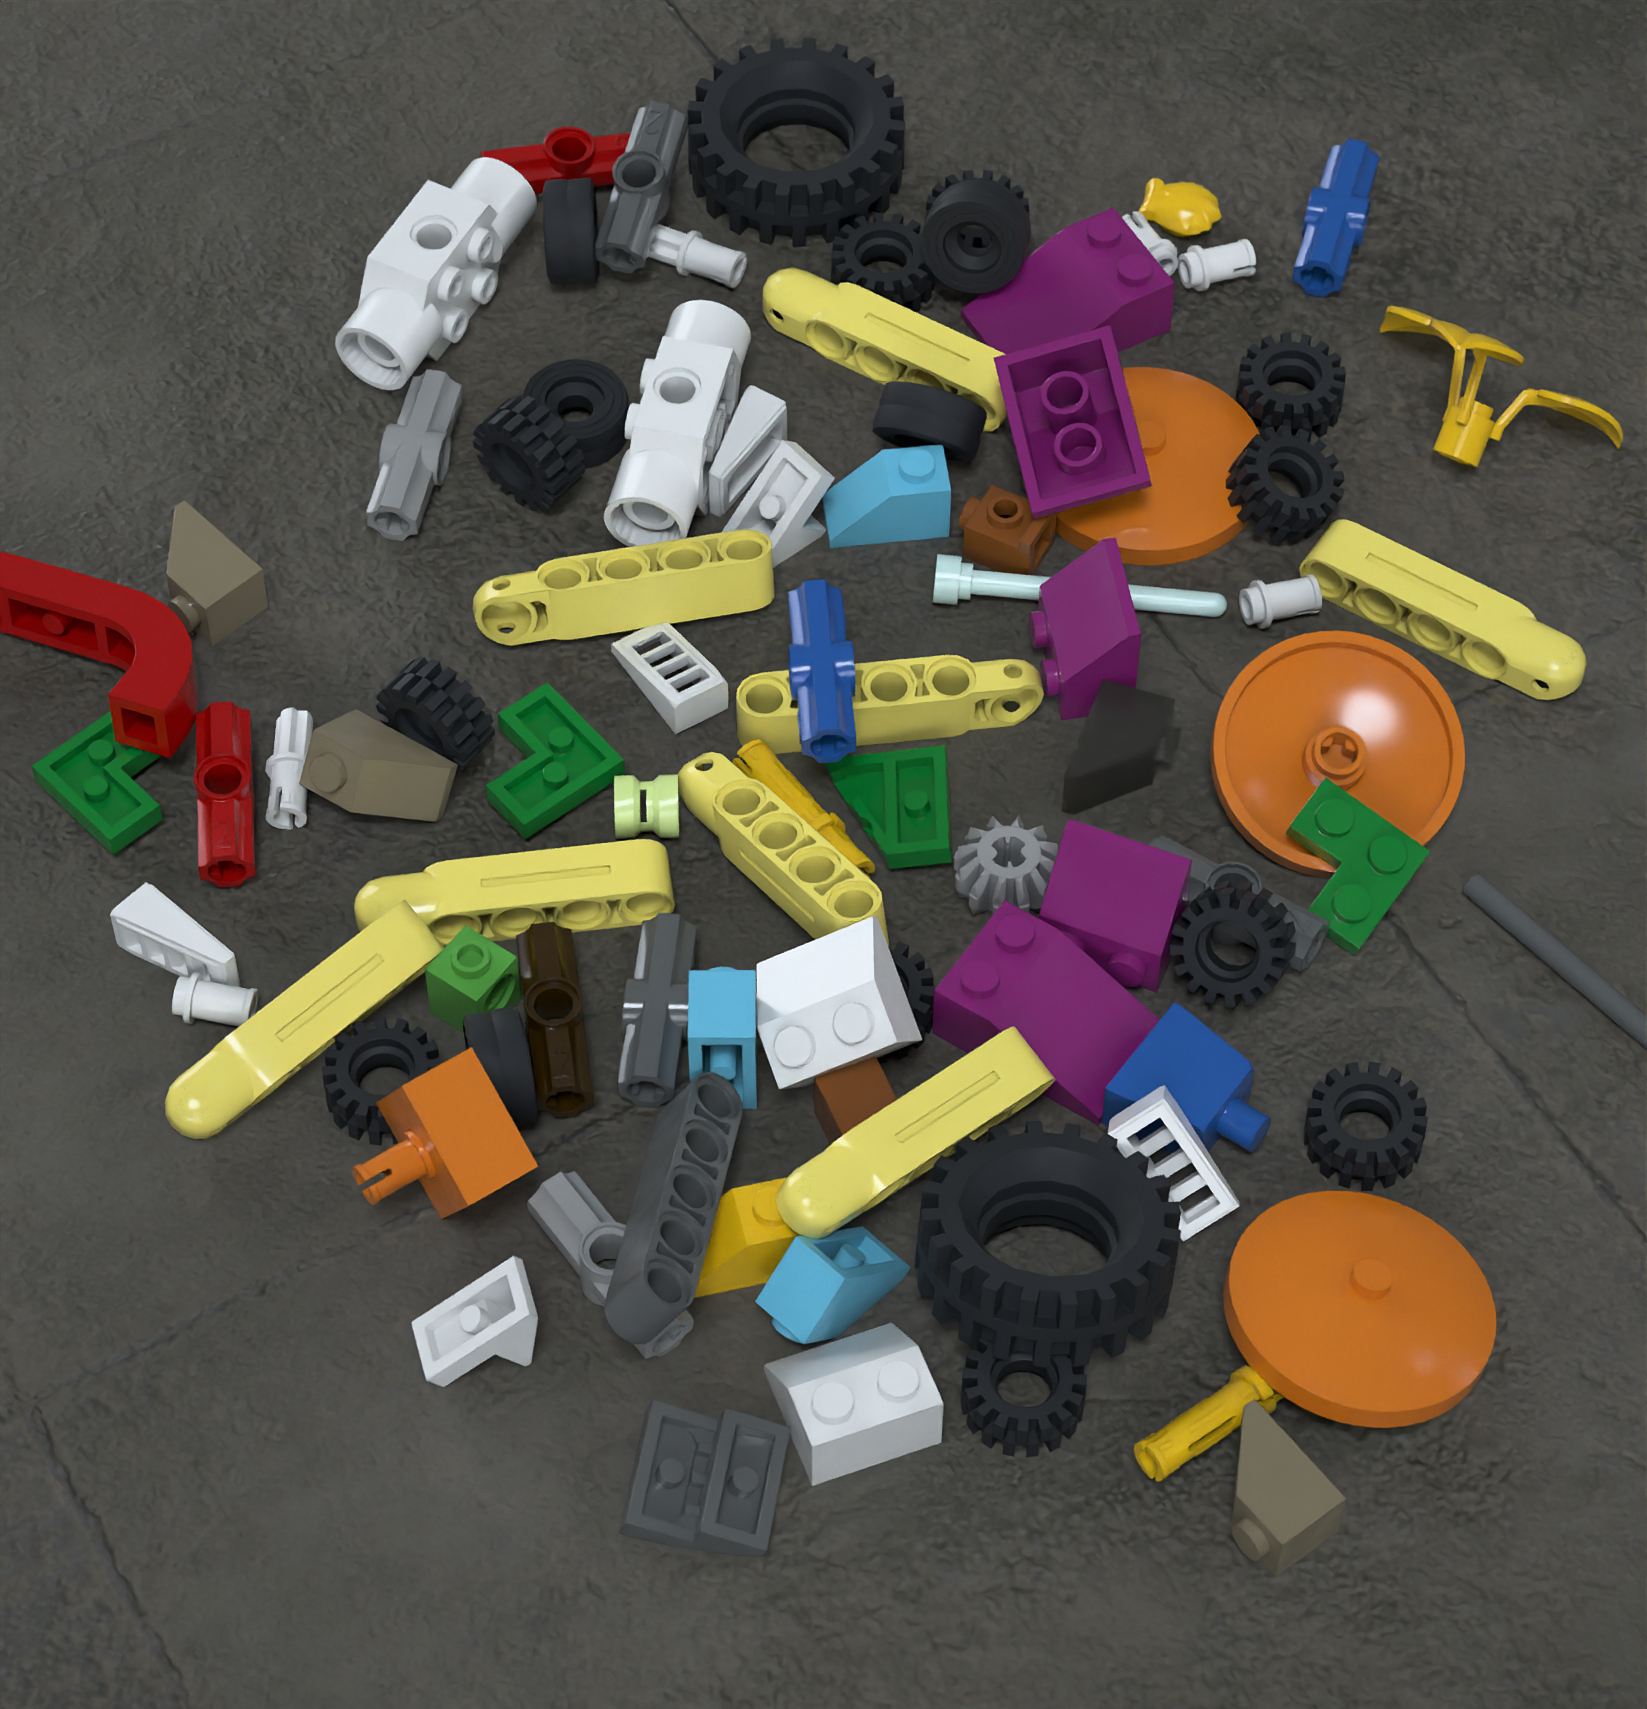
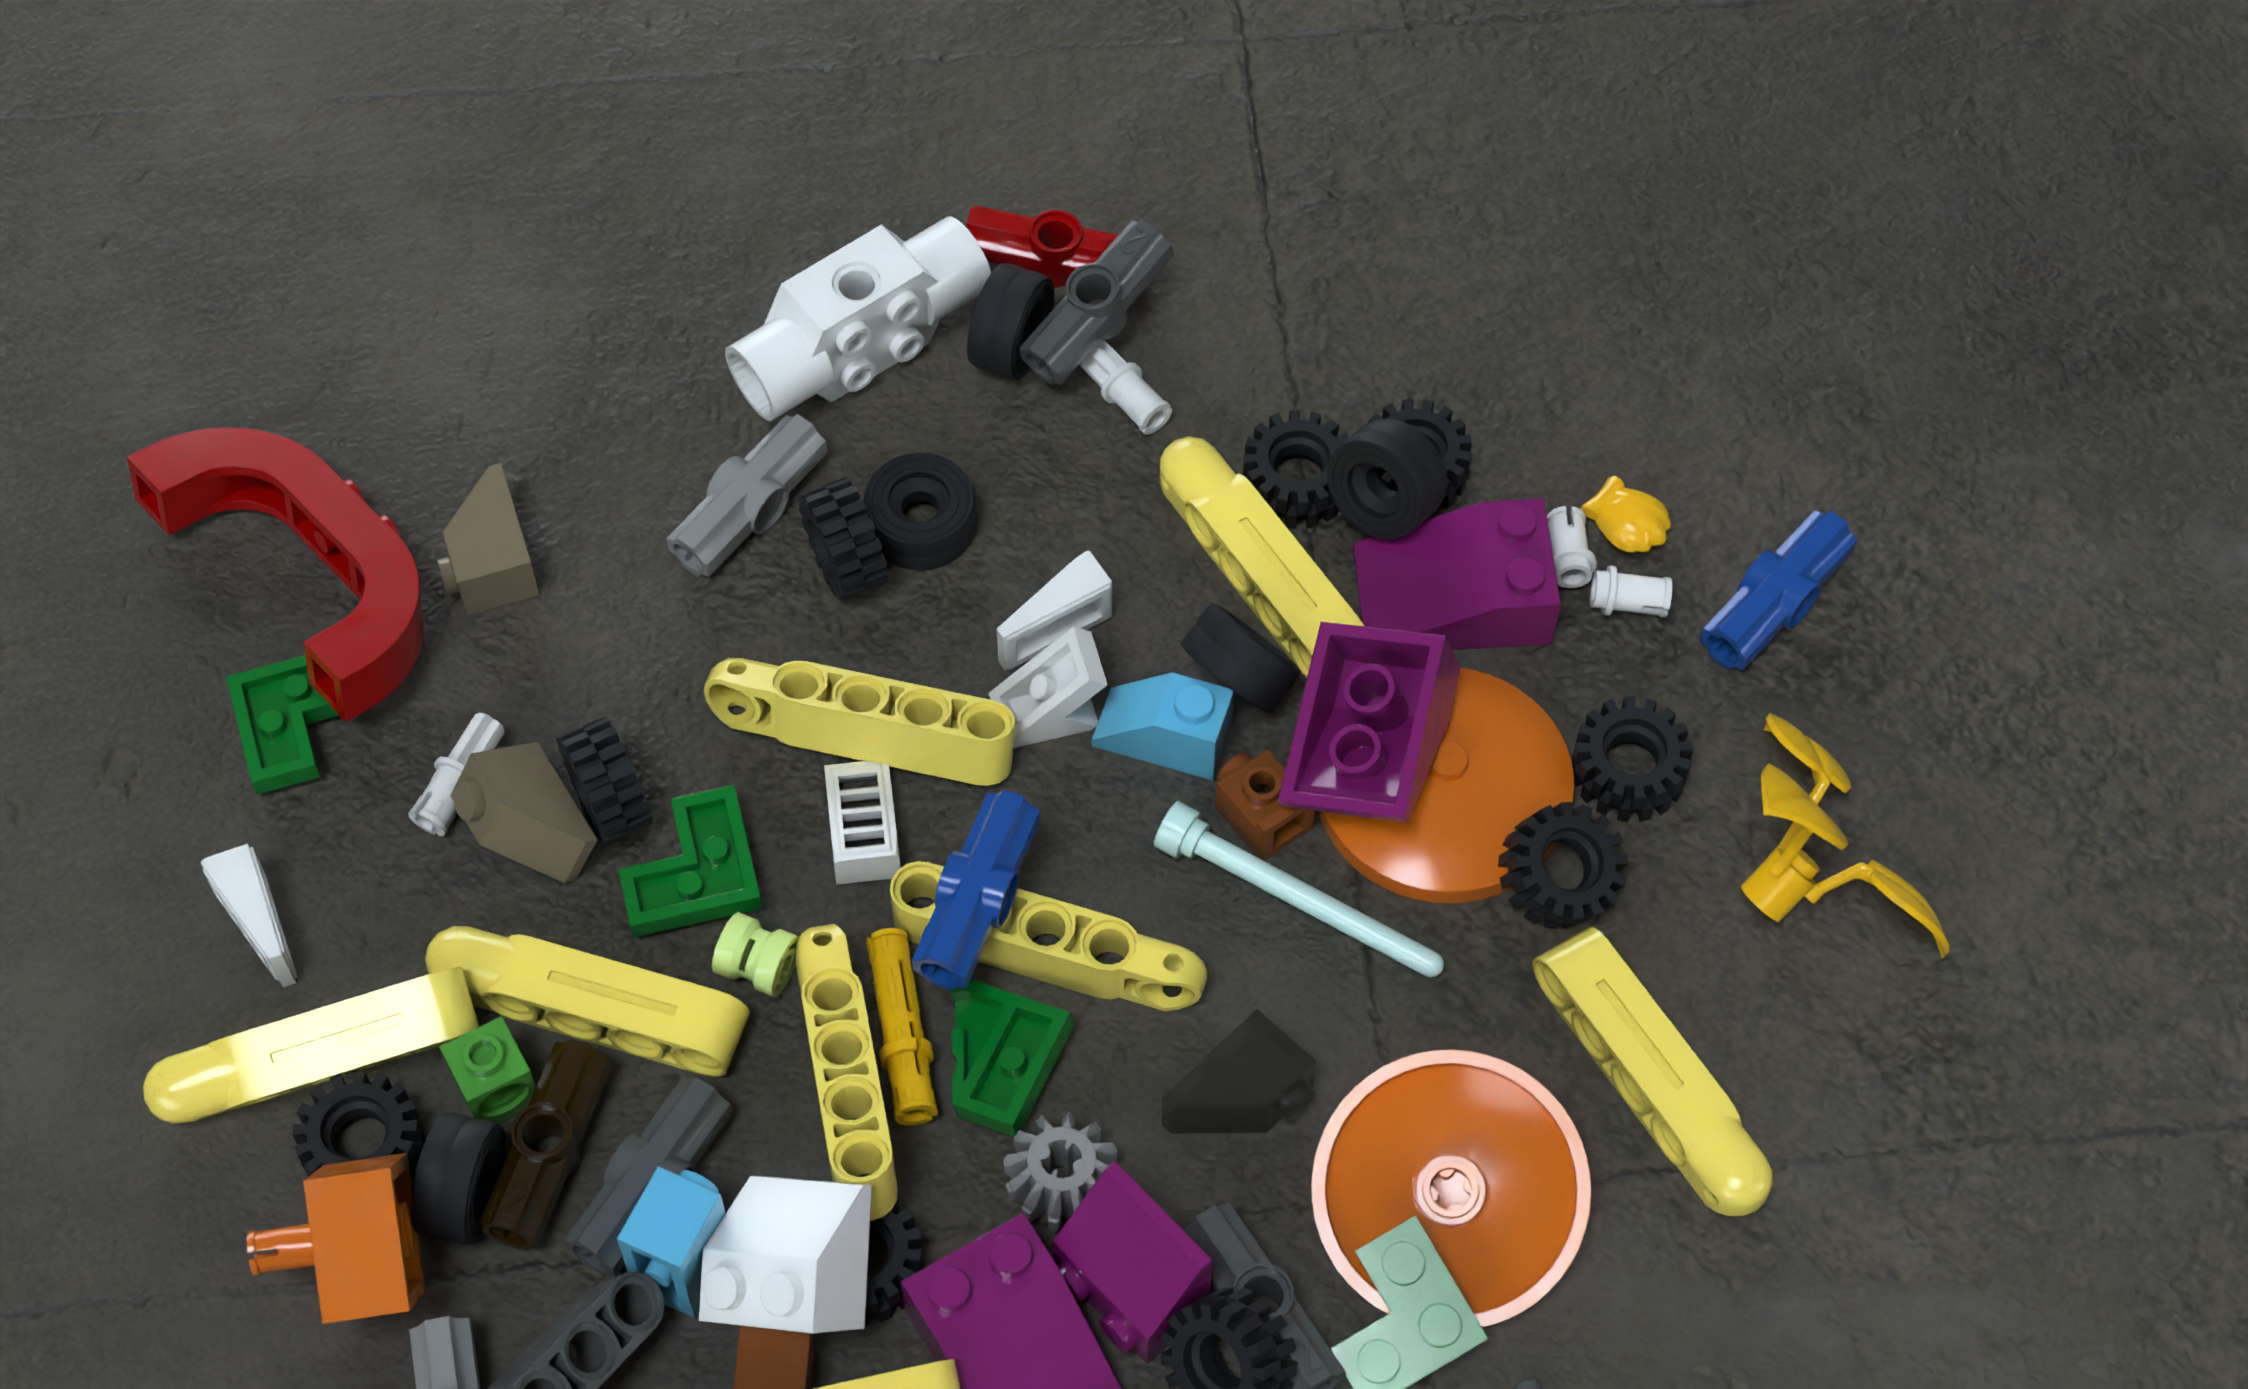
camera: 25 degrees right, 5 degrees up
(213, 1001) = (245, 978): white pin -> none
(225, 794) = (365, 807): red piece -> none
(678, 424) = (994, 565): white brick -> none
(795, 89) = (1281, 244): black tyre -> none
(1086, 630) = (1271, 949): magenta slope -> none
(1279, 600) = (1495, 988): white pin -> none

